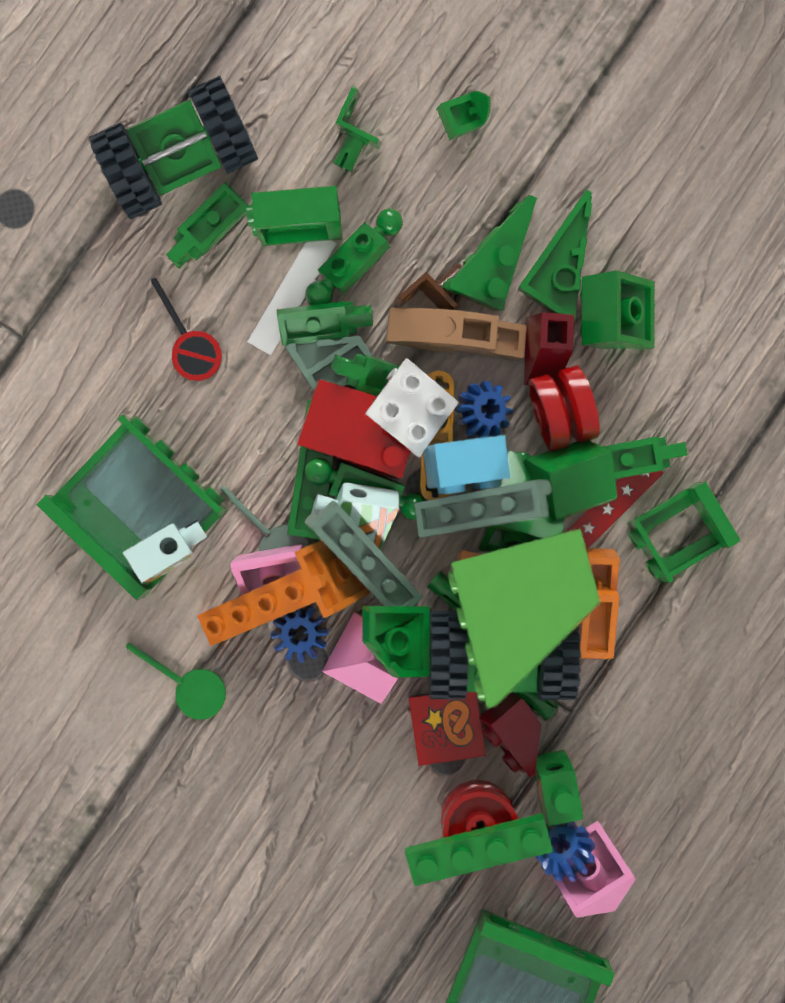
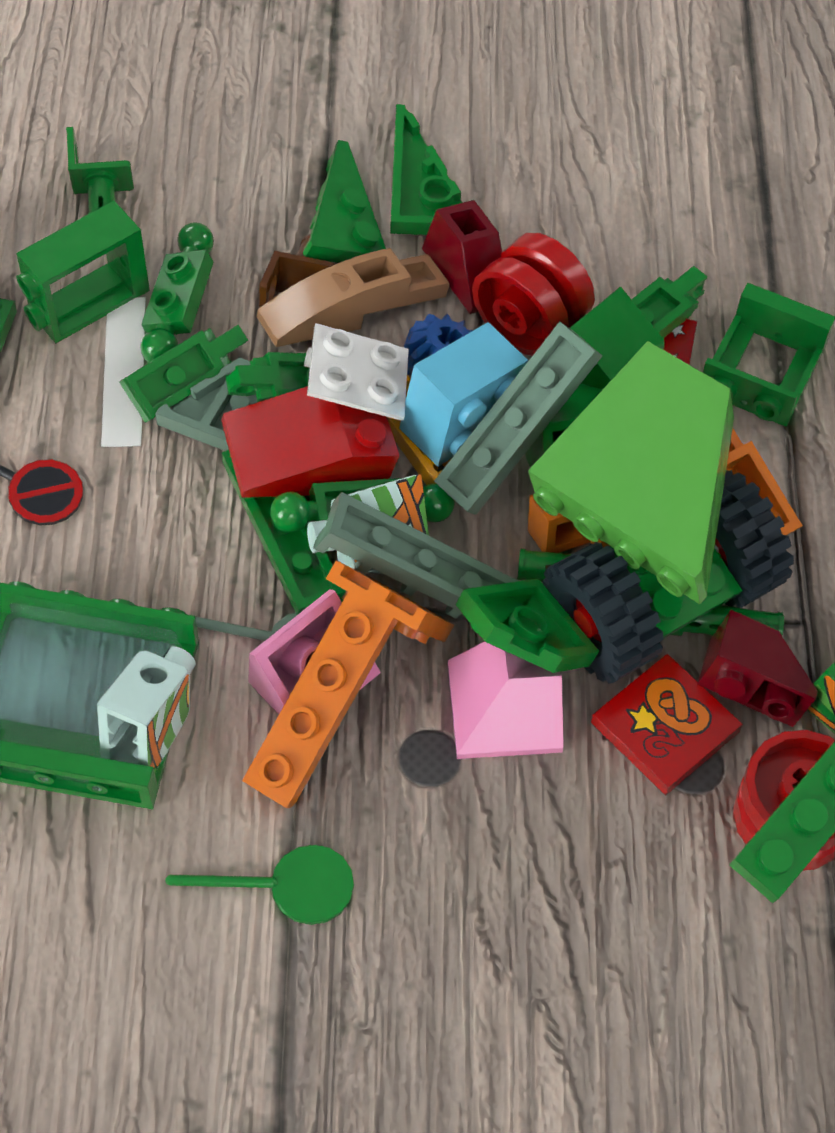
camera: 35 degrees left, 30 degrees down
(304, 644) = (390, 734): blue gear -> none
(464, 113) = (212, 104): green plate -> none
(618, 311) = (516, 191): green slope -> none

